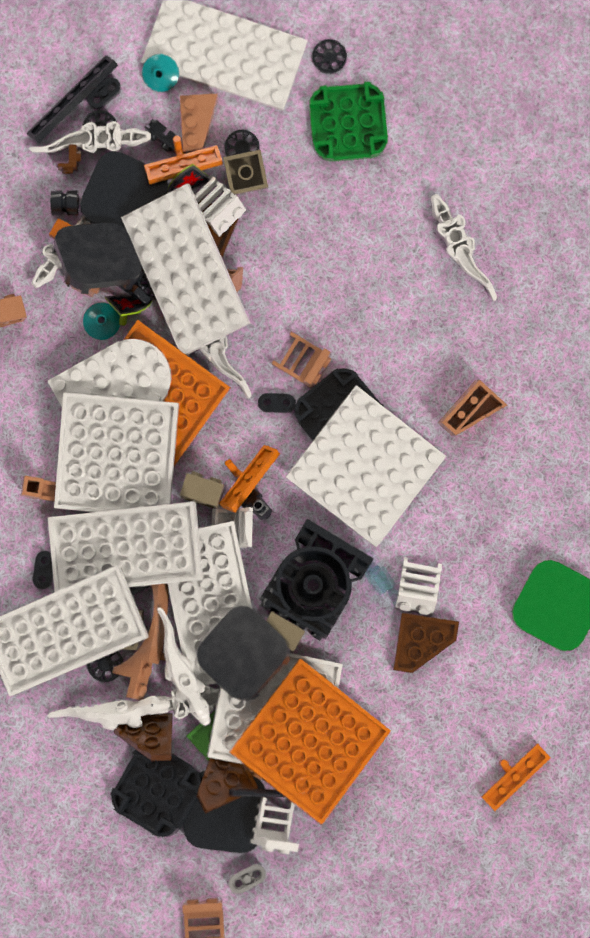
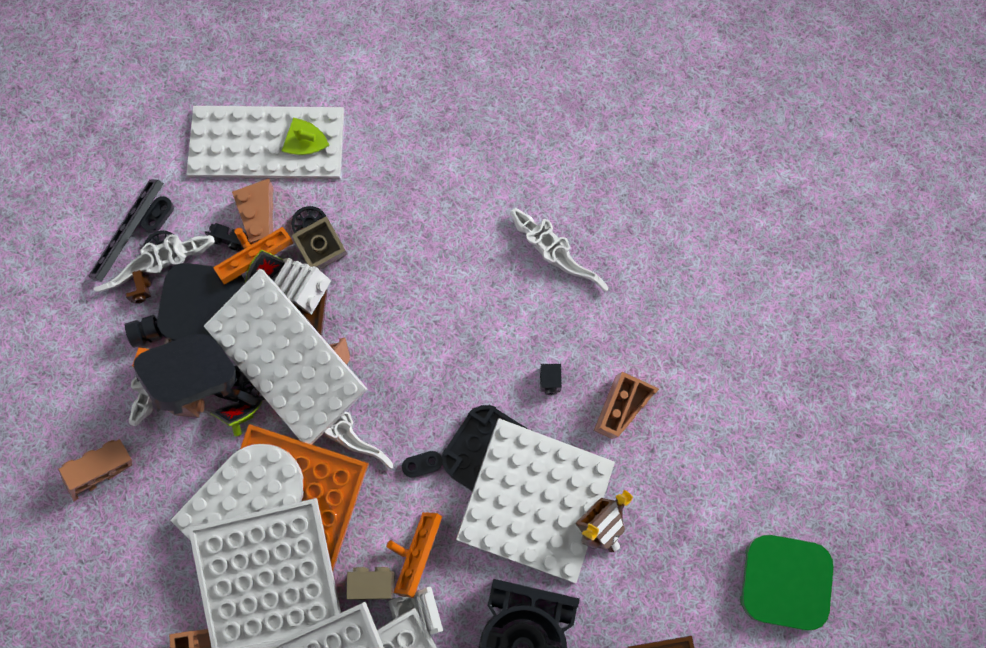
camera: 15 degrees left, 10 degrees down
(98, 330) = (221, 446): teal dish -> none
(168, 68) = (217, 176): teal dish -> none
(260, 507) = (436, 580): black plate -> none
(261, 61) = (304, 138): none -> lime shield
(312, 370) = (448, 418): nougat plate -> none
(329, 56) = (369, 116): black wheel -> none
(348, 122) = (406, 169): green tile -> none
(381, 579) = (593, 617): clear light blue brick -> none
(415, 364) = (550, 378): none -> black brick
(417, 504) = (604, 522): none -> reddish brown torso
(418, 597) = (638, 623): white plate -> none

